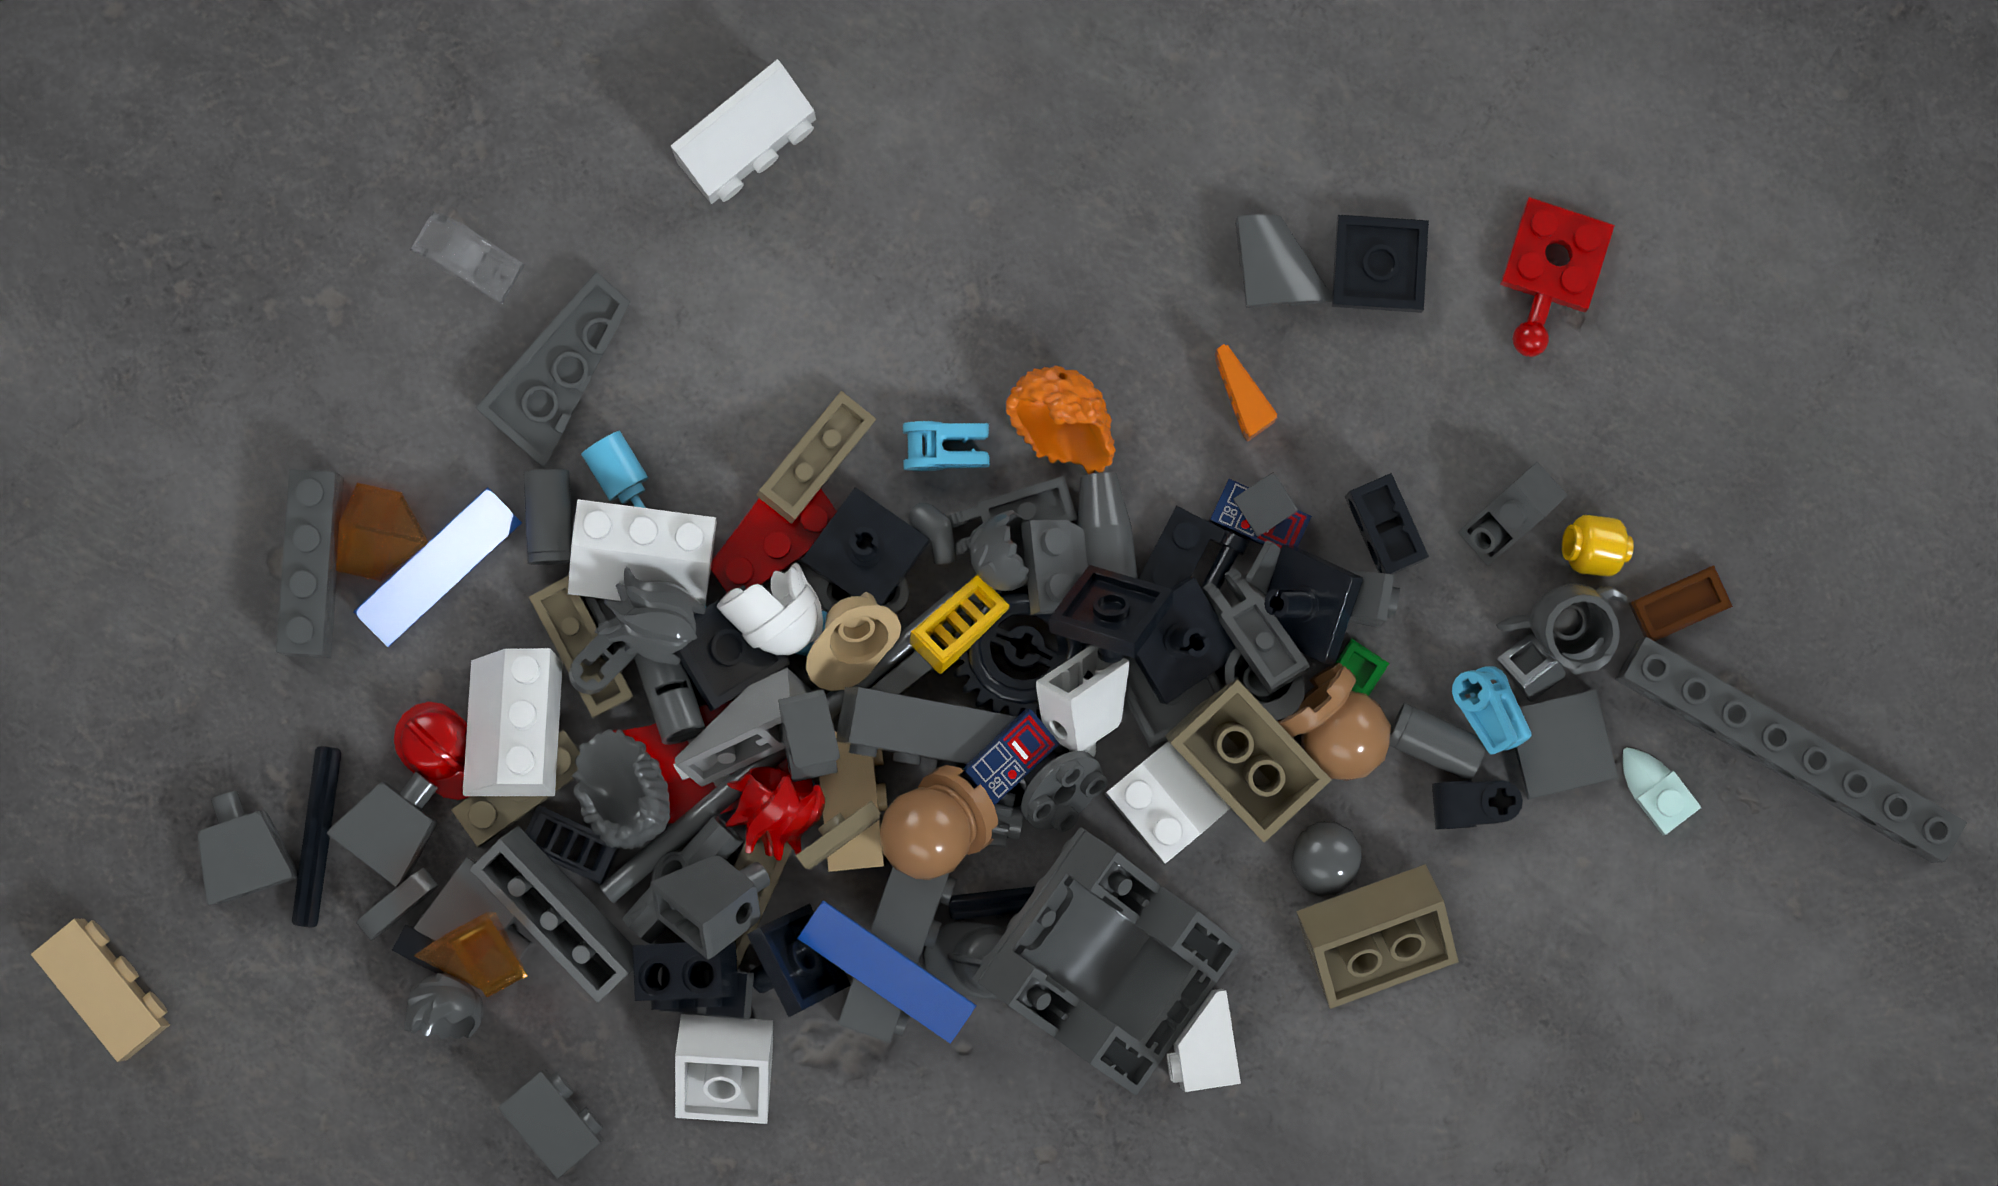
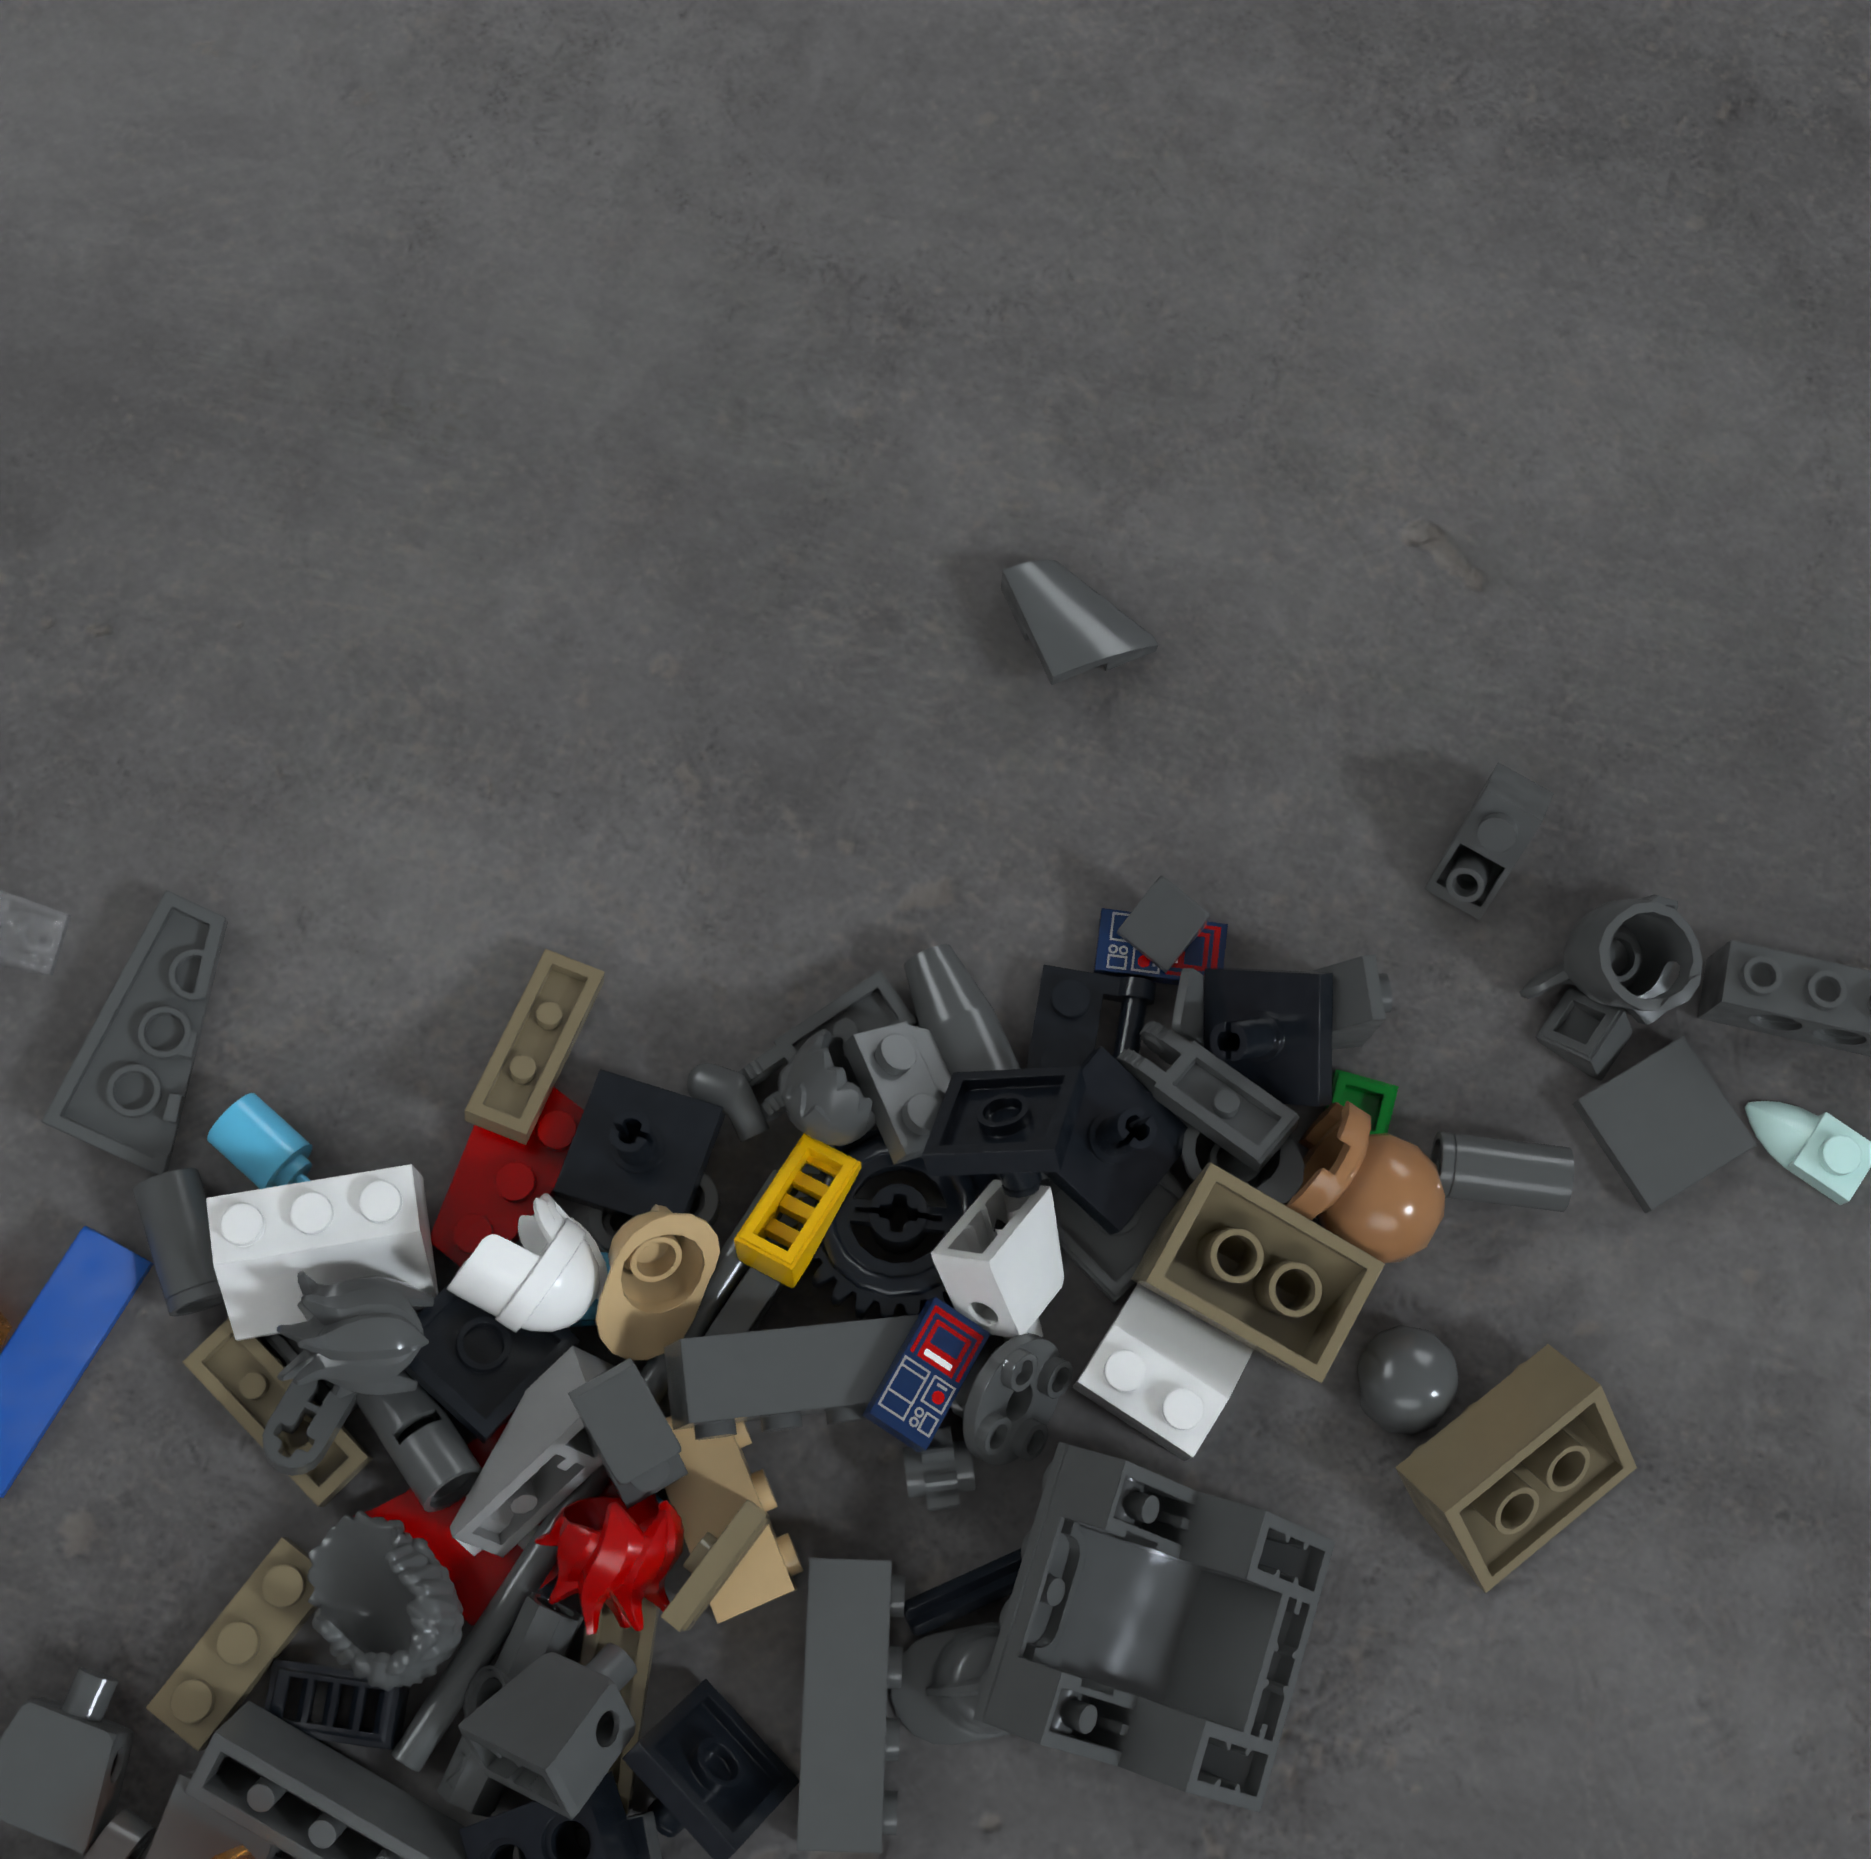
camera: 15 degrees left, 10 degrees down
(433, 743) = (117, 1622): red piece -> none
(513, 723) = (205, 1552): white slope -> none
(744, 133) = (317, 651): white slope -> none
(887, 971) = (846, 1747): blue slope -> none
(935, 456) = (705, 998): medium azure piece -> none
(937, 824) = (853, 1505): medium nougat tile -> none
(1062, 418) = (855, 892): orange piece -> none
(1206, 1048) = (1340, 1709): white slope -> none
(1248, 402) = (1091, 797): orange slope -> none
(1380, 263) = (1205, 580): black plate -> none
(1386, 525) = (1332, 900): black brick -> none
(1466, 803) = (1575, 1241): black piece -> none
(1491, 711) = (1562, 1107): medium azure piece -> none
(1533, 274) = (1403, 538): red plate -> none
(1597, 545) = (1614, 847): yellow head -> none
(1680, 604) = (1747, 892): reddish brown tile -> none

